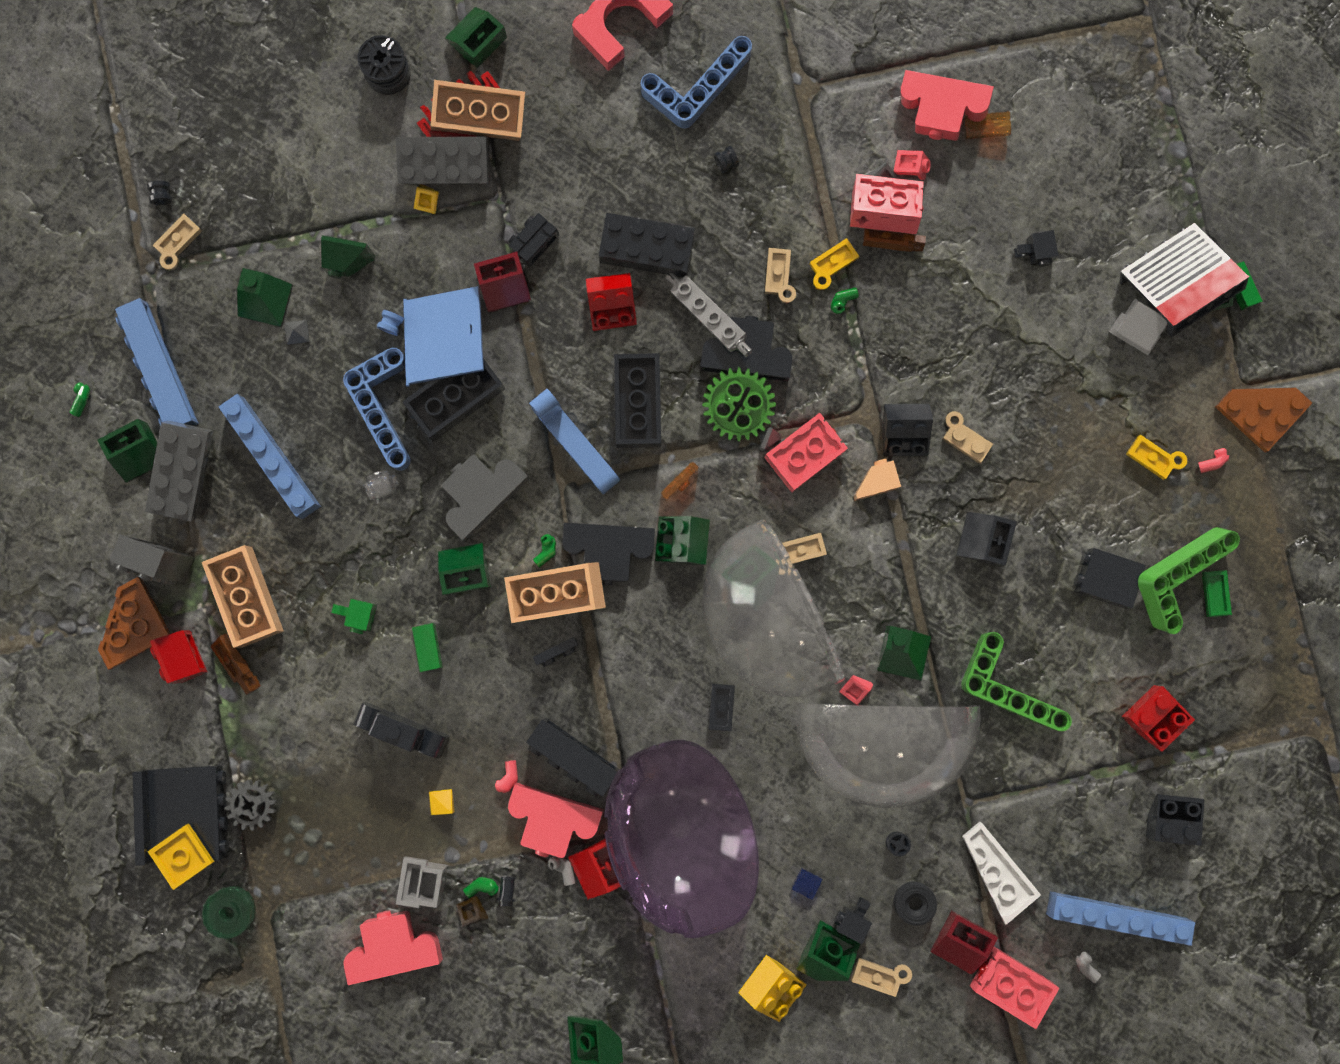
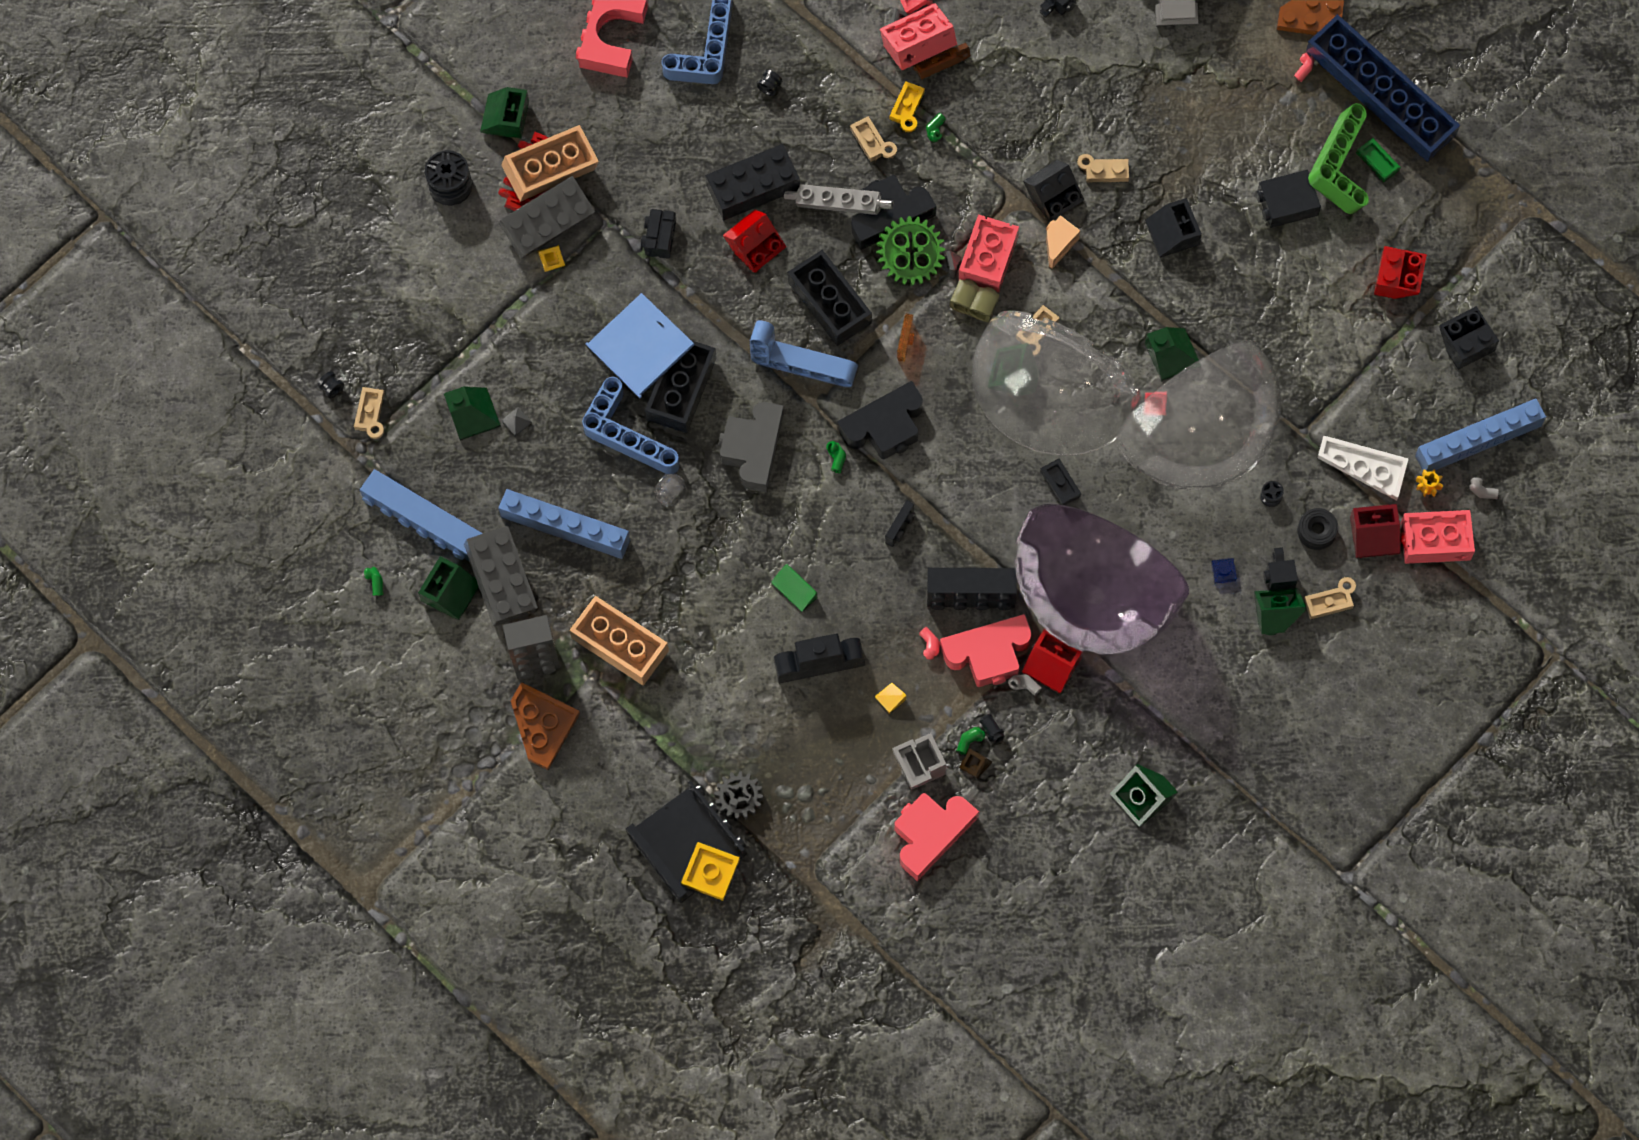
camera: 30 degrees left, 15 degrees down
(178, 657) = (599, 719): red slope -> none
(214, 912) = (780, 903): clear green wheel -> none
(234, 664) = (647, 698): reddish brown hinge -> none
(344, 256) = (518, 335): dark green slope -> none
(358, 615) = (721, 596): green brick -> none
(390, 322) = (589, 365): medium blue wheel -> none
(463, 569) = (783, 509): dark green slope -> none
(502, 282) = (658, 278): dark red slope -> none
(555, 592) = (868, 474): light nougat brick -> none
(682, 540) = (939, 378): dark green slope -> none
(764, 487) = (974, 300): none -> olive brick
(772, 989) = (1254, 662): yellow slope -> none
(1007, 694) = (1273, 329): bright green beam -> none
(1037, 930) = (1426, 488): none -> yellow gear
(1154, 457) = (1258, 92): yellow hinge -> none
(1270, 532) = (1382, 88): none -> dark blue brick

